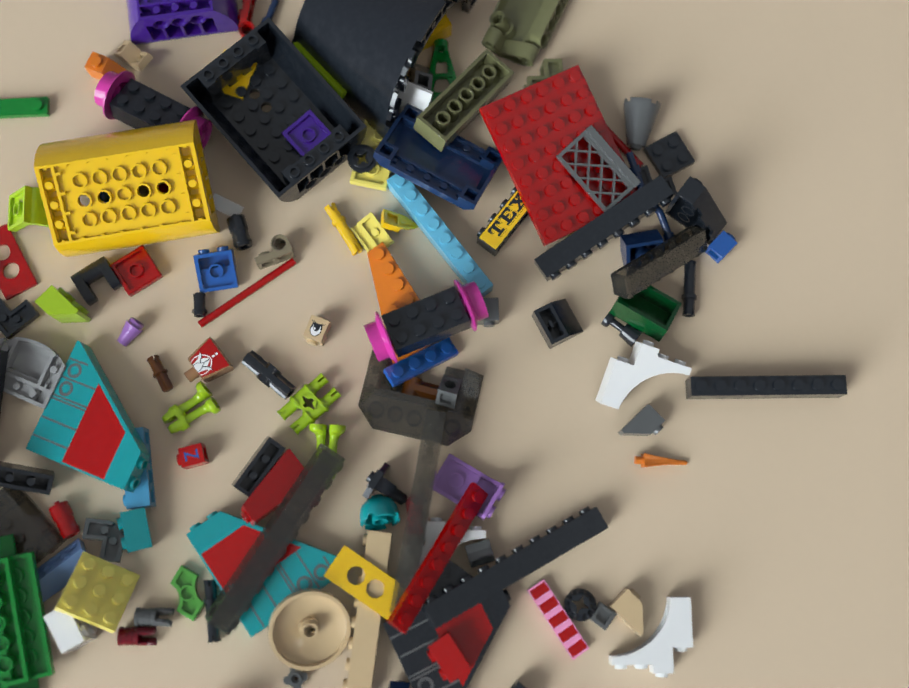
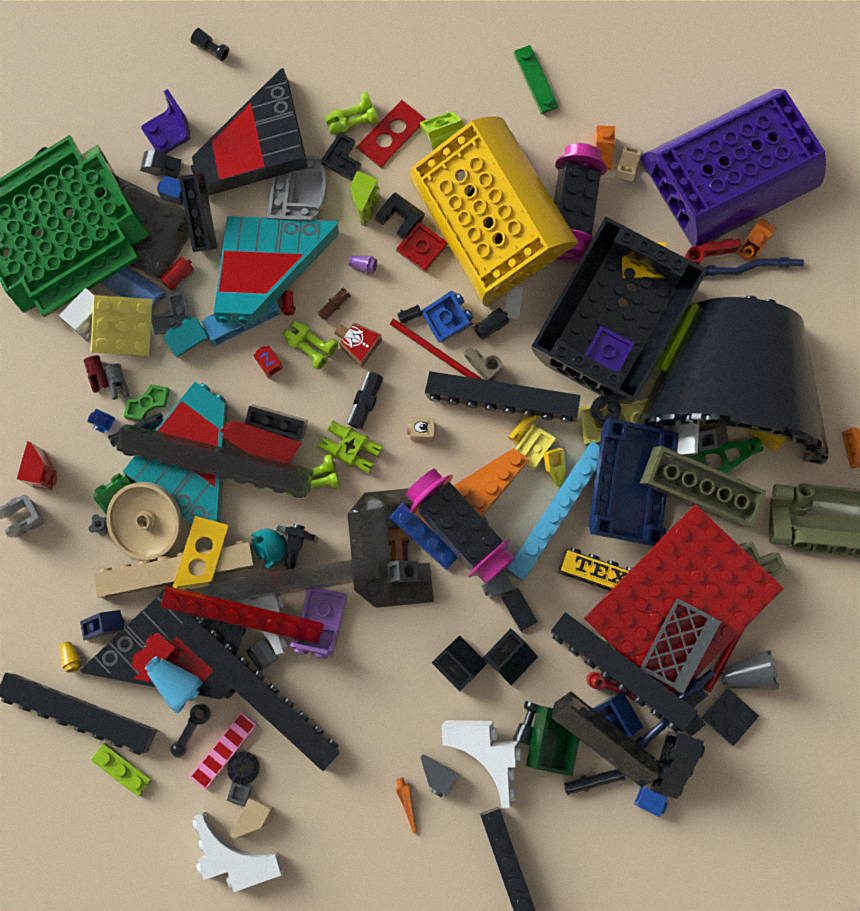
camera: 75 degrees right, 0 degrees up
(146, 419) = (288, 303): none -> red pin
(189, 645) = (101, 421): none -> clear blue plate
(266, 661) = (104, 494): none -> green bracket
(315, 244) = (503, 396): none -> black brick
(483, 644) = (173, 683): none -> medium azure cone
(517, 301) = (519, 609): none -> black plate
(542, 662) = (179, 747): none -> black piece
(549, 370) = (459, 663): none -> black slope
(603, 255) = (594, 676): none -> red brick

